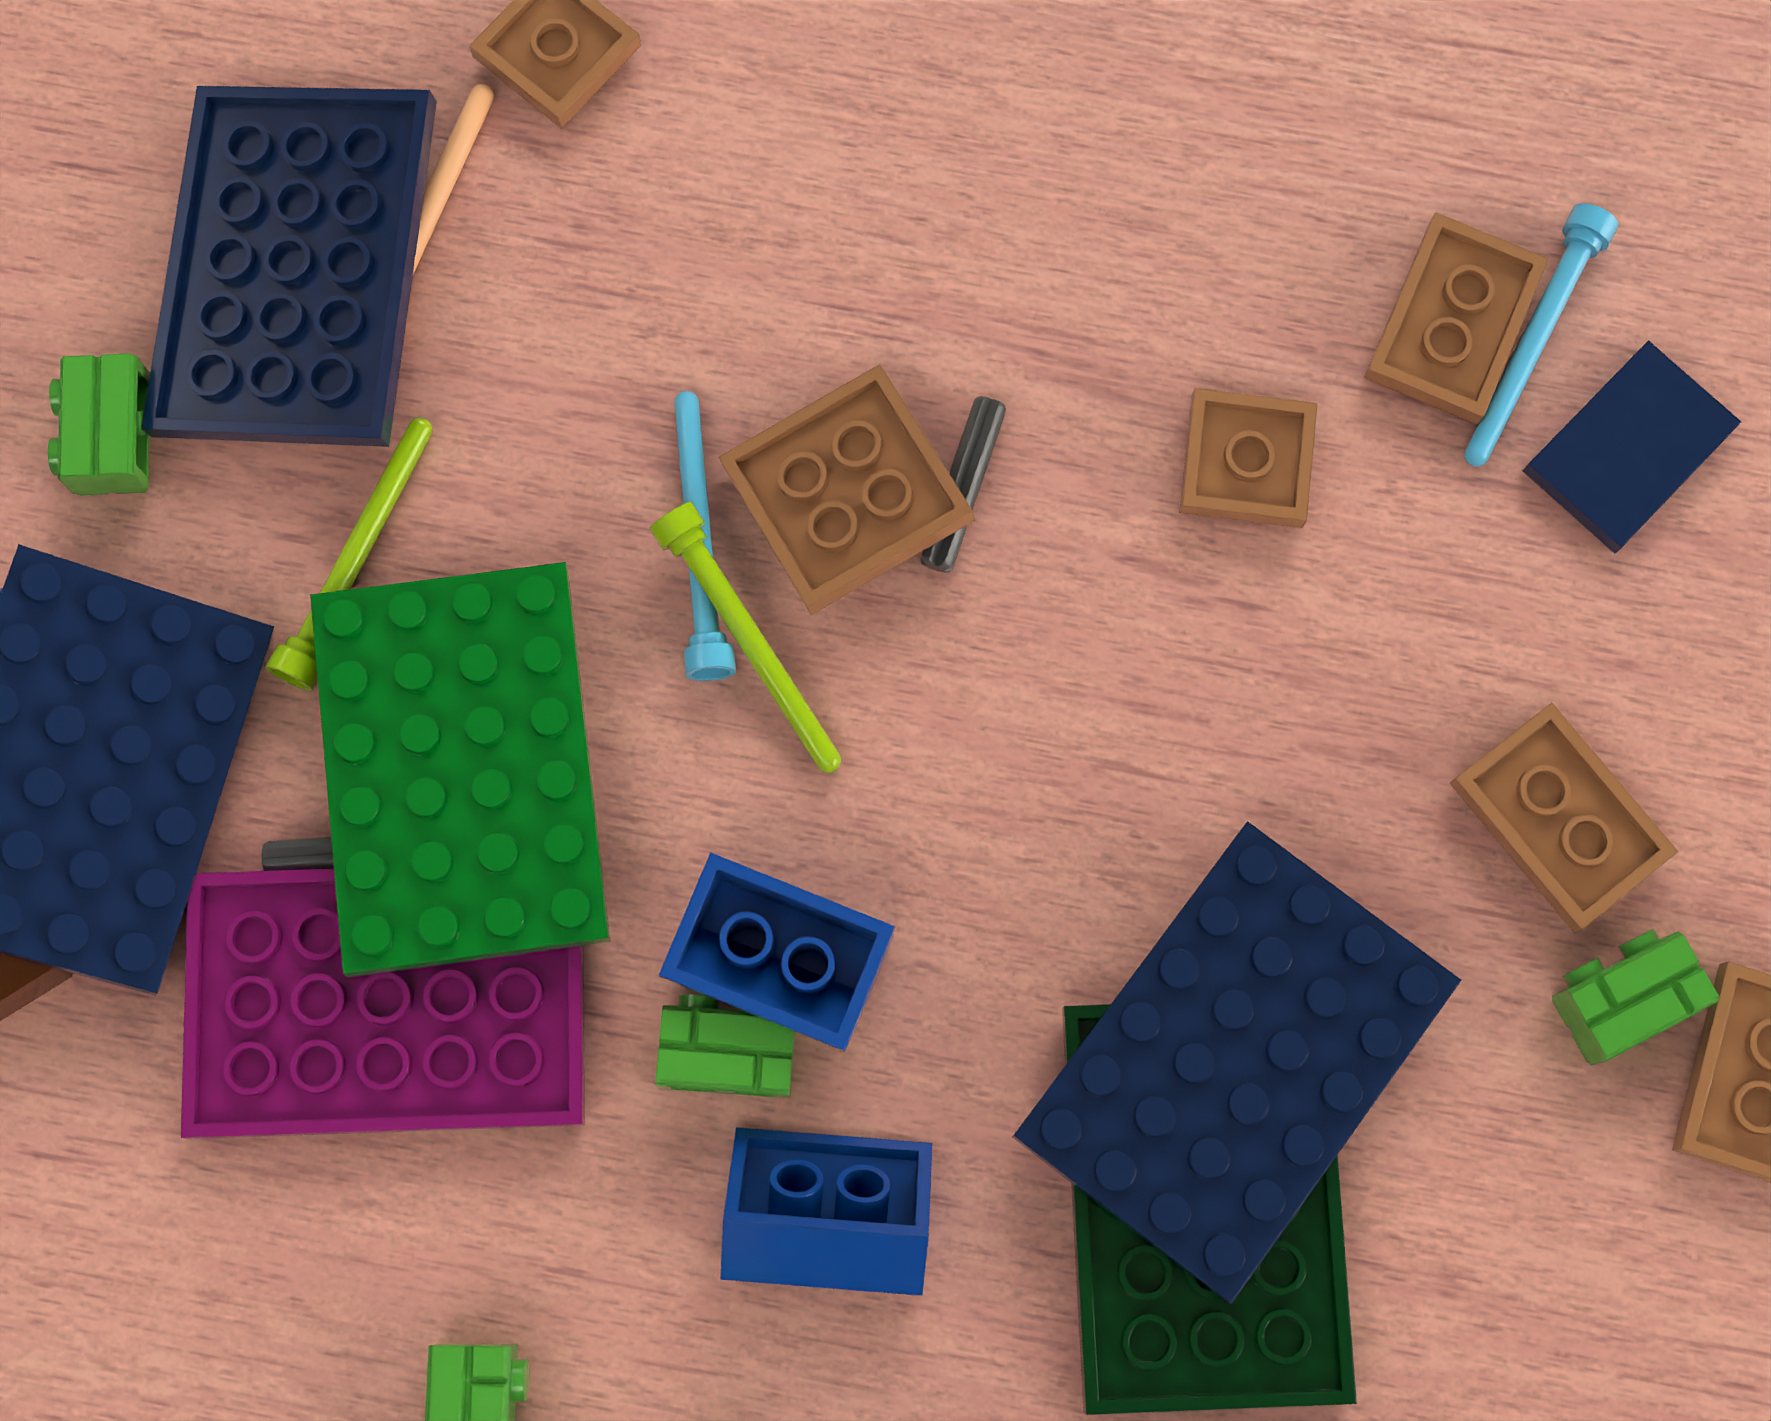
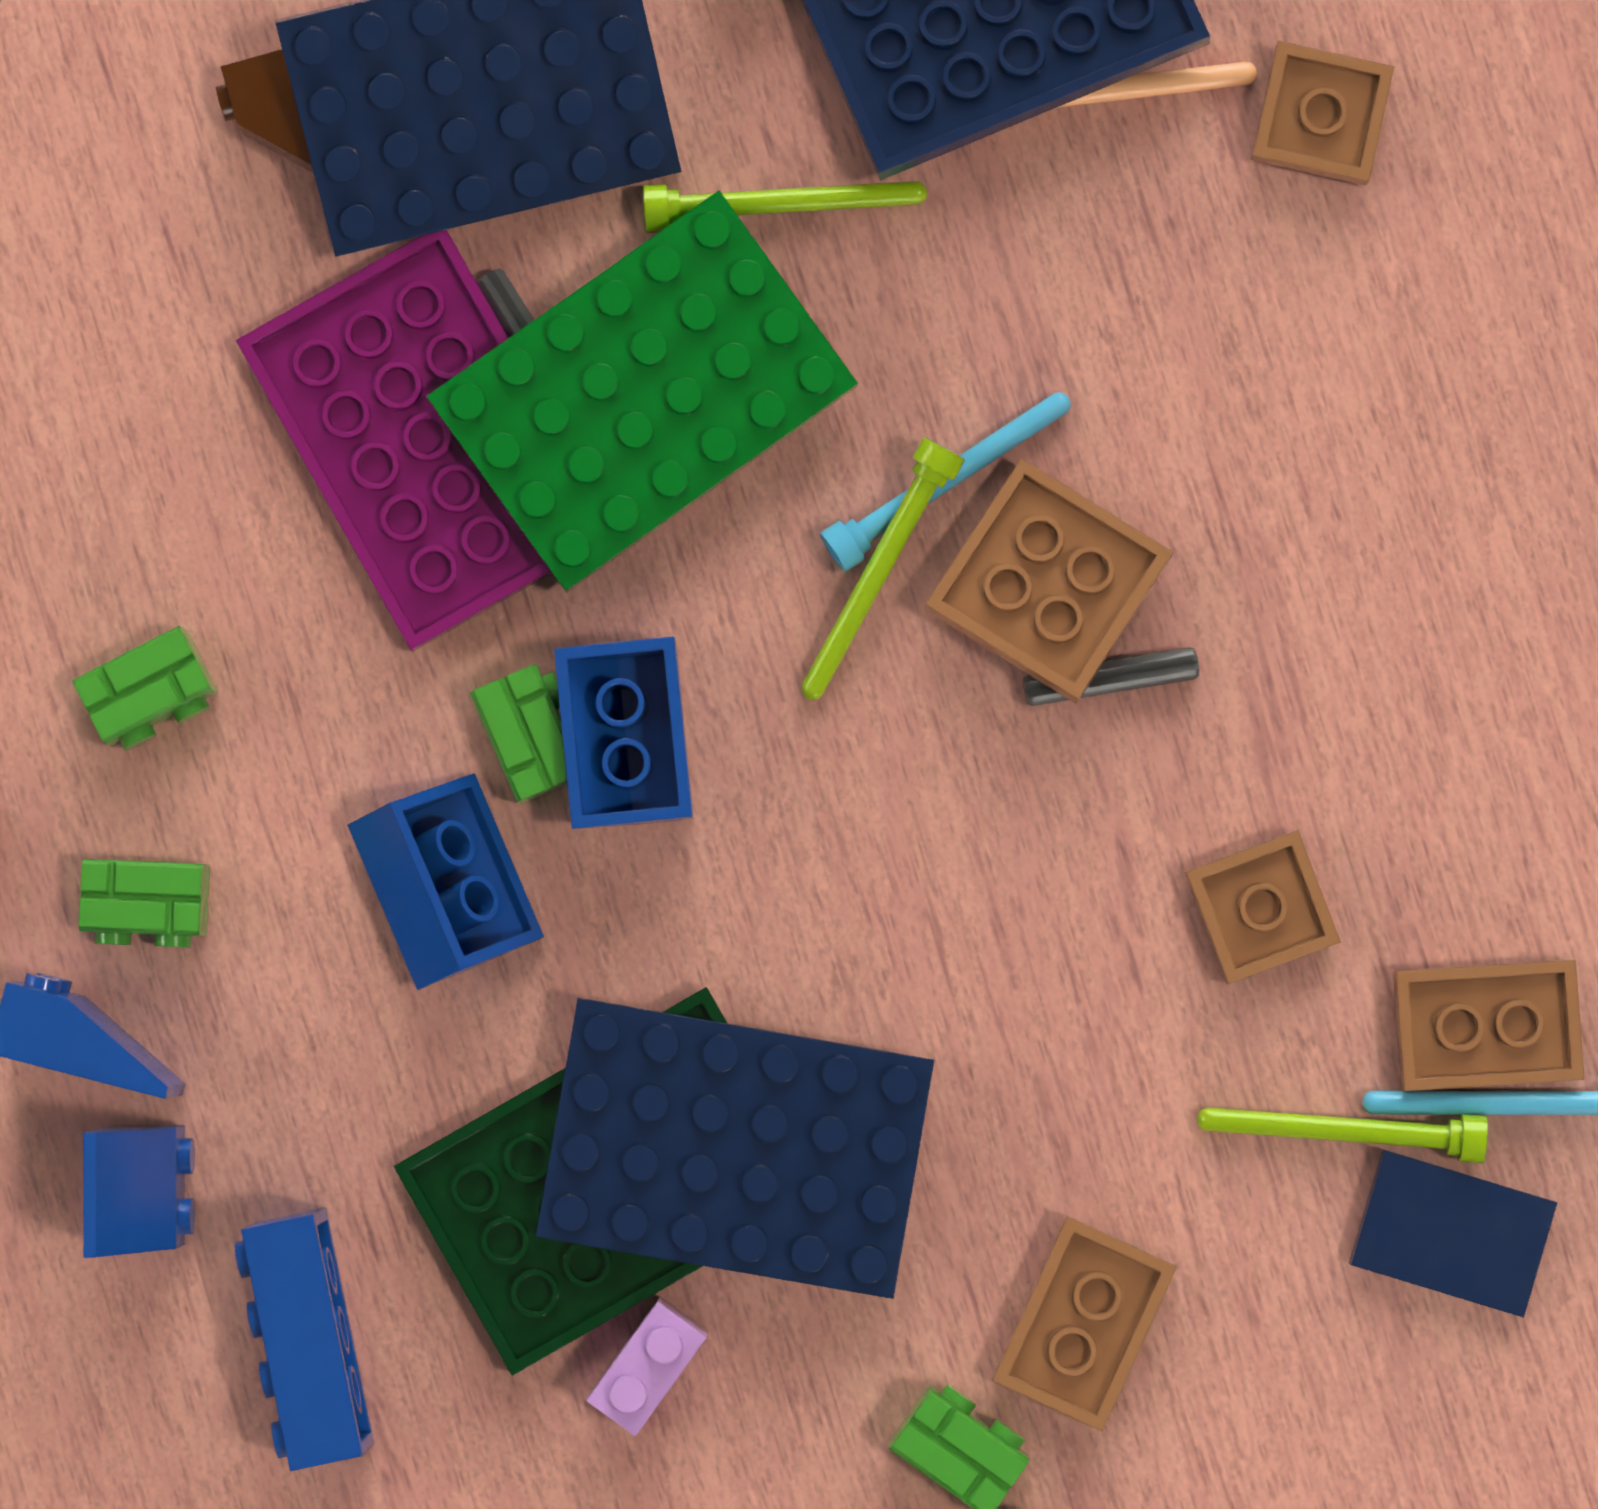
camera: 65 degrees right, 10 degrees up
(1411, 1260) = (647, 1366): none -> lavender brick
(1550, 389) = (1460, 1138): none -> lime piece

